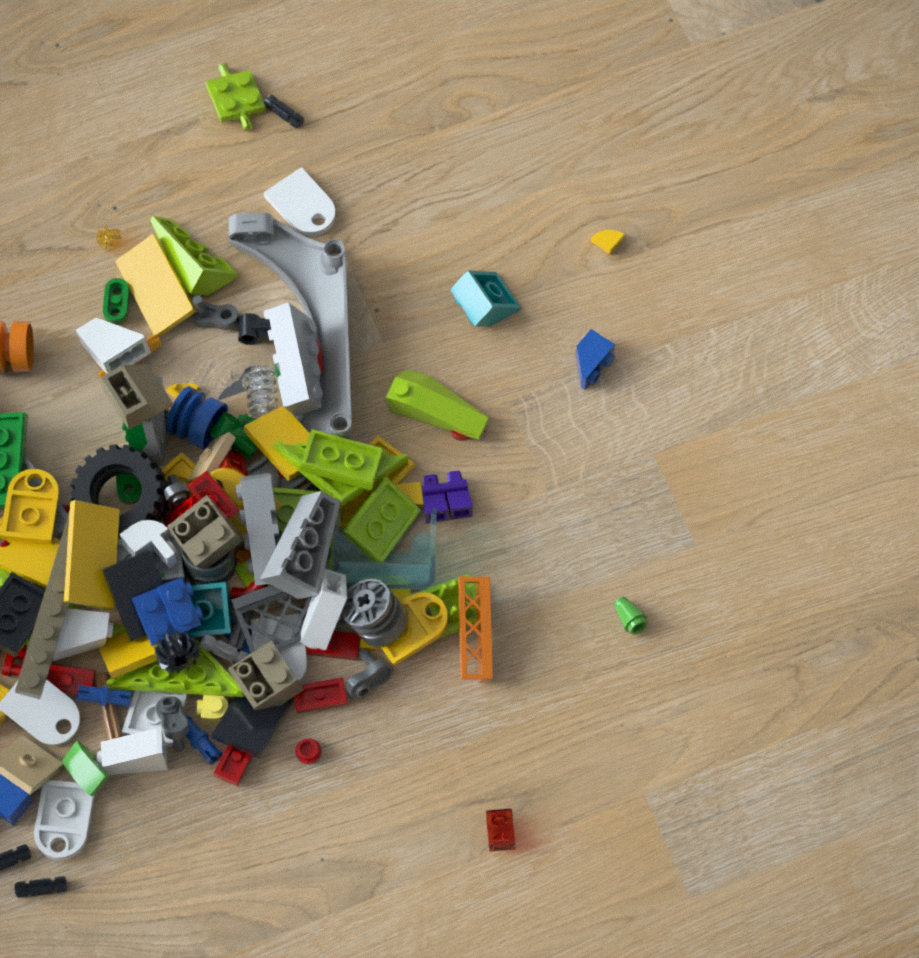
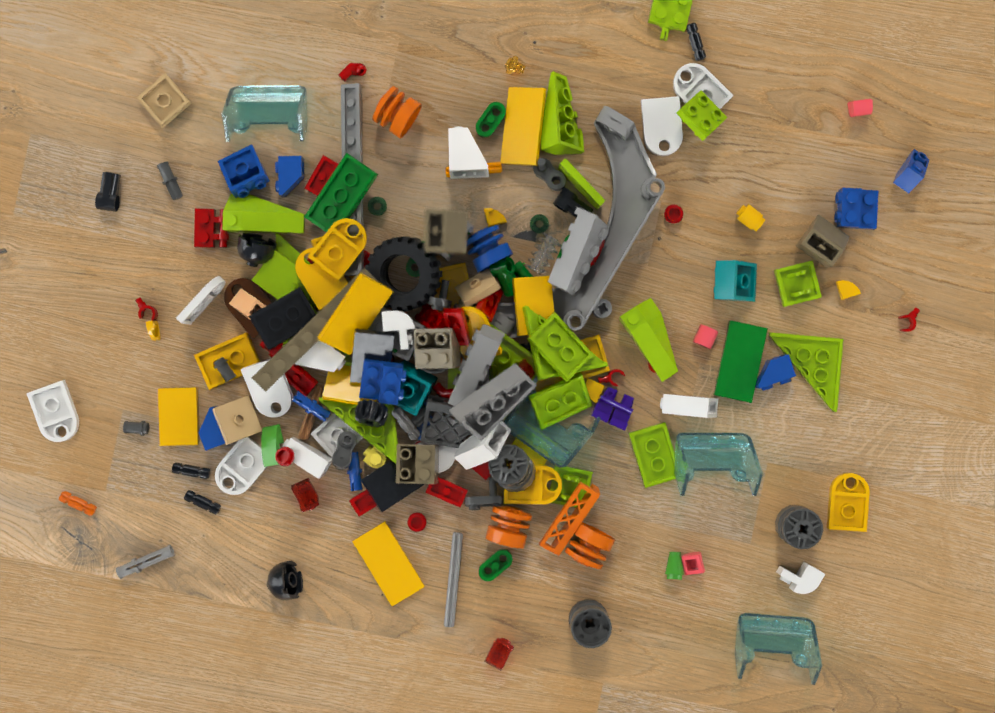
camera: 30 degrees right, 25 degrees up
(44, 449) = (373, 201): none -> clear green plate
(107, 760) = (285, 456): none -> red plate
(158, 798) = (306, 495): none -> clear red bracket
(194, 908) = (285, 581): none -> black cylinder
(236, 362) = (539, 217): none -> clear green plate
(250, 297) = (581, 184): none -> lime tile
(306, 817) = (388, 563): none -> yellow tile
(321, 151) = (700, 80): none -> white tile
(336, 167) = (701, 115): none -> lime plate
(359, 413) = (600, 311): none -> light grey wheel
(374, 276) = (673, 214): none -> red plate
(393, 787) = (453, 578): none -> light grey axle
(414, 682) = (508, 527): none -> orange wheel
(419, 473) = (607, 378): none -> red piece
(429, 741) = (495, 564): none -> green plate
(456, 231) = (750, 217): none -> yellow brick
(493, 71) = (860, 107): none -> coral brick
(493, 369) = (705, 336): none -> coral brick
(519, 645) = (589, 546): none -> orange wheel
(525, 442) = (689, 405): none -> white slope
(525, 518) = (654, 454): none -> lime tile
(548, 211) = (823, 242): none -> dark tan slope
(548, 372) = (740, 361): none -> green tile
(552, 263) = (797, 283): none -> lime plate
(559, 162) = (856, 208): none -> blue plate
(579, 713) = (592, 633): none -> dark grey wheel
(588, 96) = (912, 171): none -> blue slope
(593, 472) = (716, 453): none -> clear light blue windscreen
(629, 324) = (817, 361): none -> lime tile
(648, 599) = (693, 563): none -> coral brick
(693, 226) = (911, 316): none -> red piece
(726, 499) = (788, 527): none -> dark grey wheel
(769, 441) = (848, 506): none -> yellow tile
(778, 543) = (804, 581): none -> white brick
(798, 617) = (777, 635): none -> clear light blue windscreen

